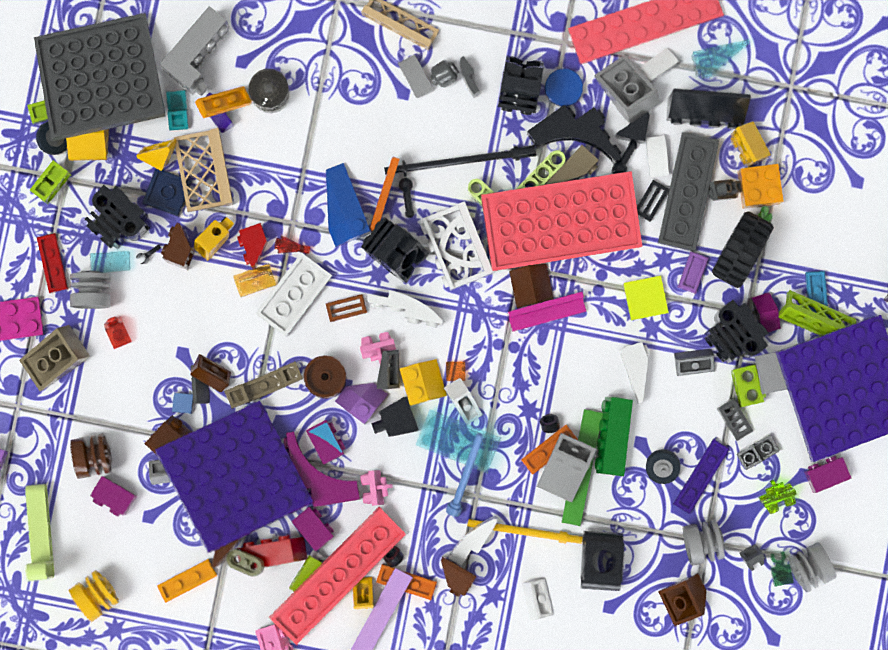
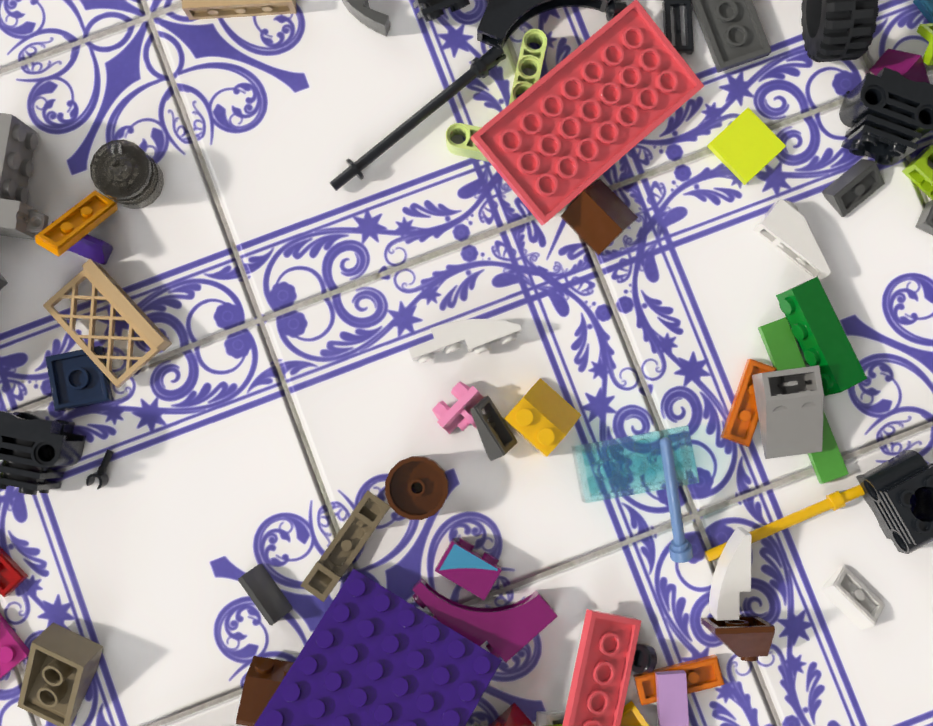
camera: 25 degrees left, 0 degrees up
(90, 290) = (49, 564): light grey wheel -> none
(110, 261) = (58, 510): clear light blue slope -> none
(117, 332) = (120, 594): clear red bracket -> none
(158, 154) = (38, 339): yellow slope -> none
(177, 110) = (30, 269): teal slope -> none
(179, 249) = (130, 439): reddish brown slope -> none
(182, 403) = (258, 632): medium blue tile -> none
(208, 244) = (168, 400): yellow torso -> none
(210, 373) = (269, 572): reddish brown slope -> none
(254, 243) = (225, 374): red slope -> none
(254, 280) = (255, 420): clear yellow slope -> none
(286, 245) = (268, 352): clear red cone -> none
(293, 294) = (314, 408): white plate -> none
(313, 528) = (522, 688): magenta brick -> none
(345, 214) = (314, 266): blue wedge -> none
(348, 315) = (406, 367): dark orange tile -> none
(361, 400) = (480, 487): medium lavender slope -> none
(378, 487) = (569, 583): bright pink hips -> none
(384, 192) = (349, 212): orange tile -> none
(394, 249) = (404, 272): black piece -> none
(396, 419) = (539, 484): black torso -> none
(406, 186) = (370, 191): black piece -> none
(415, 76) = (299, 50): light grey slope -> none
(444, 73) = (332, 25): dark grey head -> none
(455, 370) = (573, 378): clear orange tile -> none
(463, 220) = (470, 186): white fence -> none
(463, 401) = (606, 408): white slope -> none
(546, 311) = (638, 236): dark pink fence -> none
(549, 423) = (729, 369): black tile -> none
(576, 166) = (564, 36): dark tan slope -> none
(663, 466) = (903, 336): black wheel -> none
(692, 272) = (782, 81): medium lavender tile -> none

